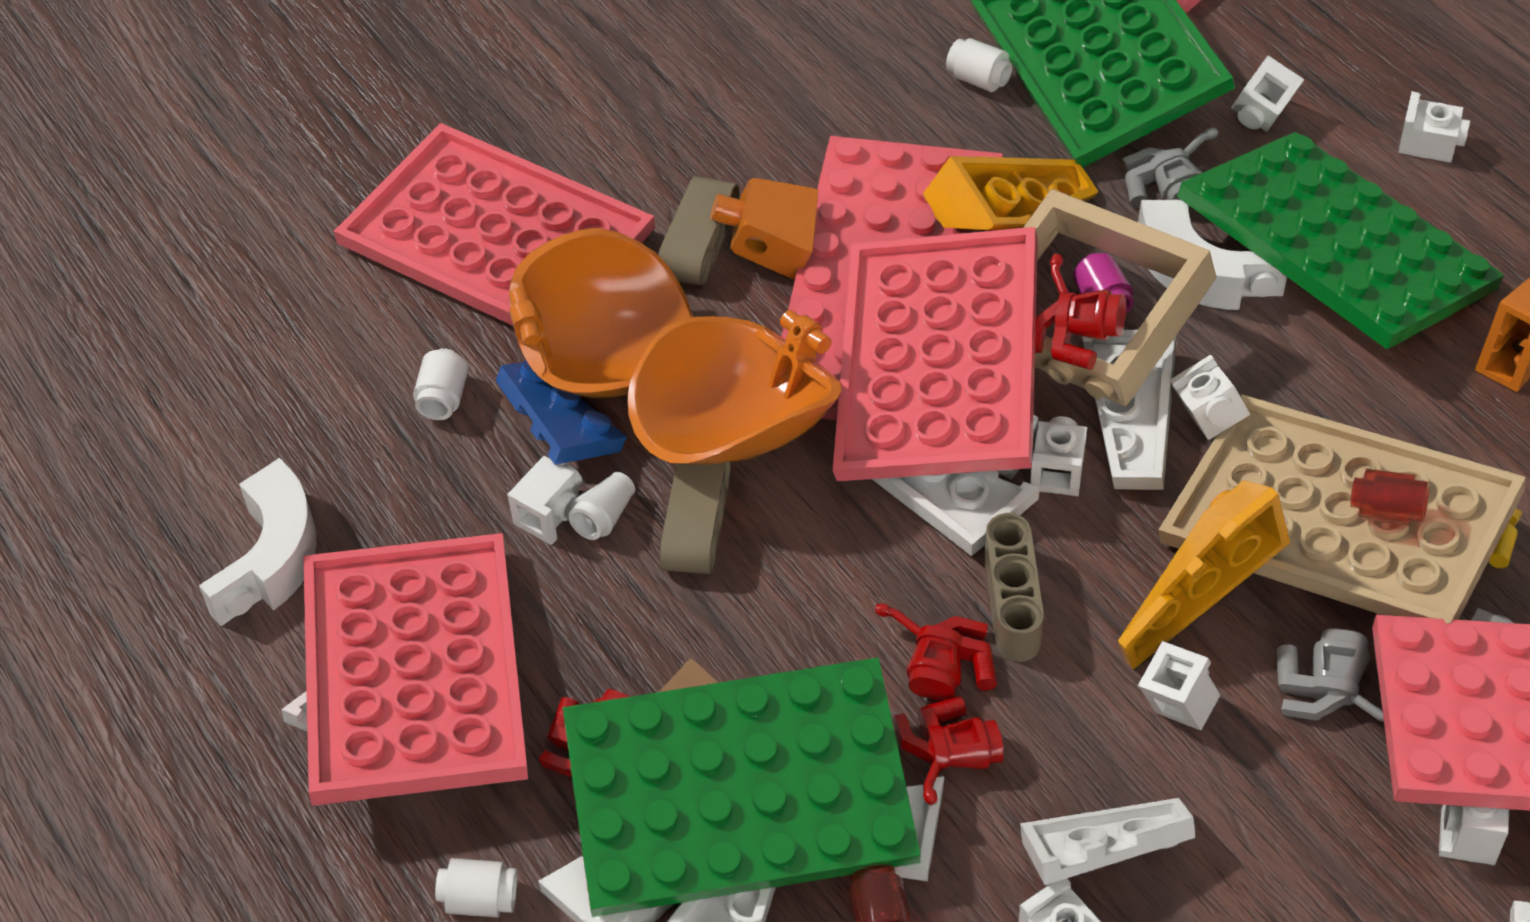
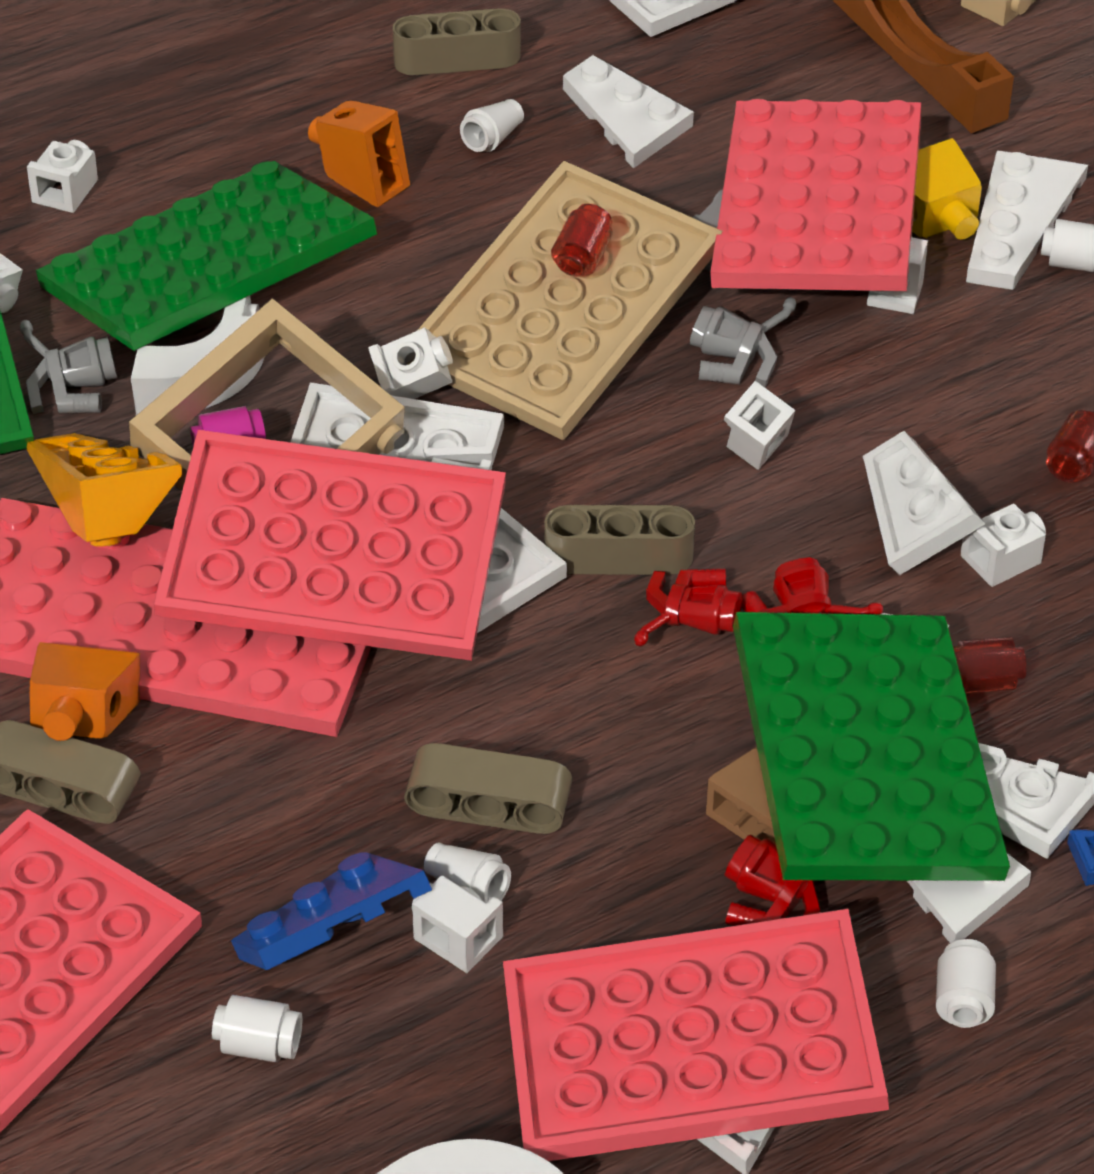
camera: 90 degrees left, 5 degrees down
(591, 309) = (228, 844): orange piece -> none
(729, 388) = (376, 710): orange piece -> none
(1085, 314) = (324, 409): red piece -> none
(1221, 551) = (617, 365): light orange wedge -> none

